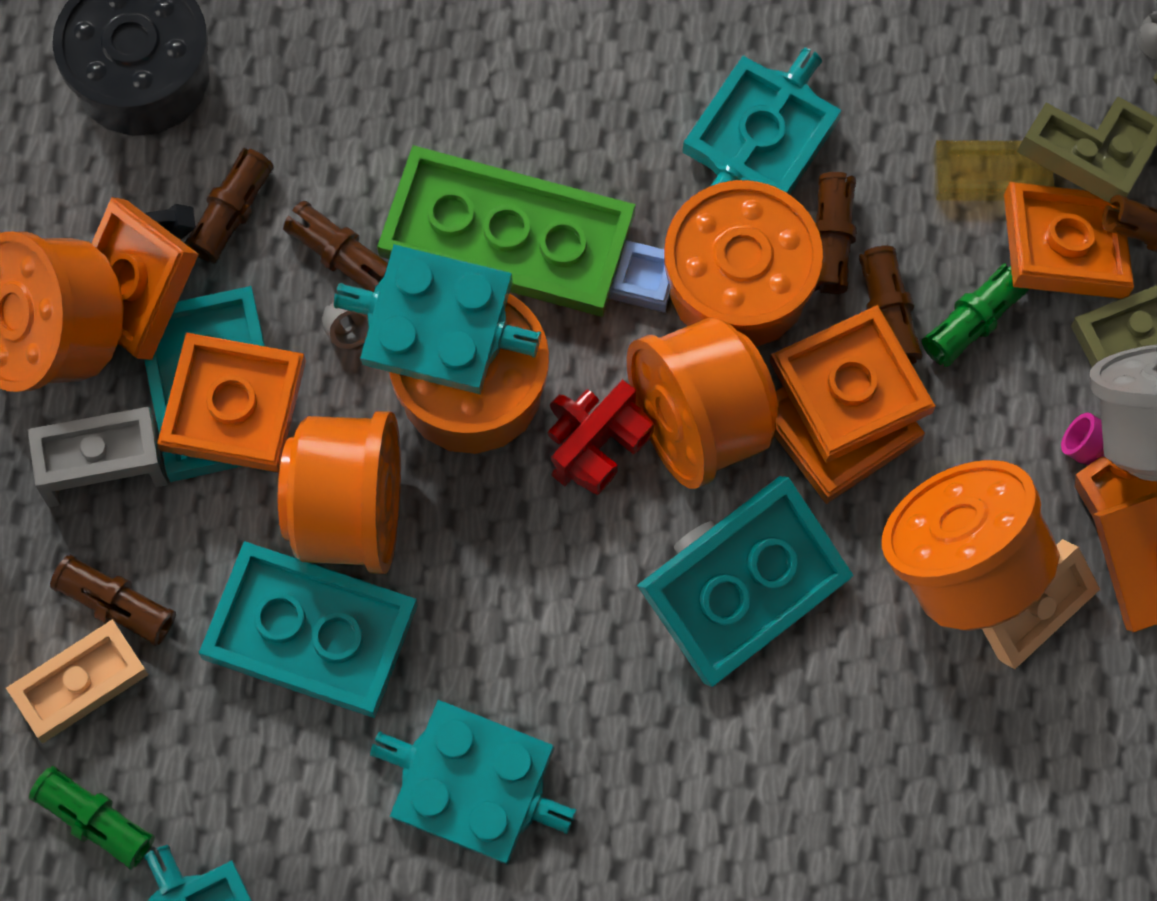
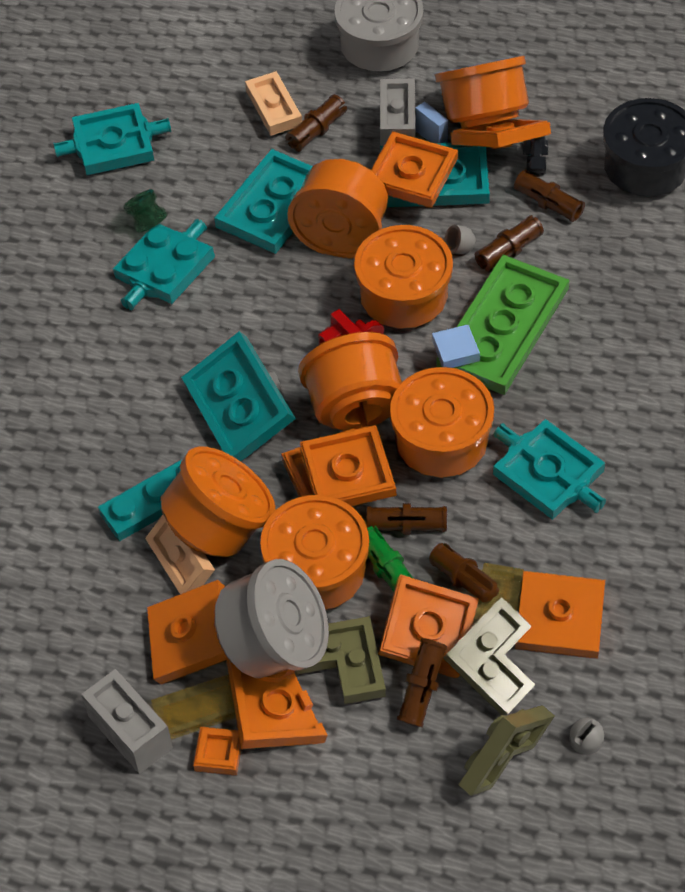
camera: 105 degrees right, 15 degrees down
(91, 817) = (198, 104): green pin -> none
(107, 395) = (431, 124): none -> light blue tile
(362, 831) = (145, 210): none -> clear green wheel
(437, 319) = (427, 244): teal plate -> none
(586, 277) = (456, 346): none -> light blue tile
(835, 229) = (465, 495): reddish brown pin -> none
(932, 670) = (139, 504): none -> teal plate
(969, 209) = (464, 572): none -> reddish brown axle
(987, 85) = (562, 614): none -> orange plate
(1013, 389) = (322, 539): none -> orange wheel

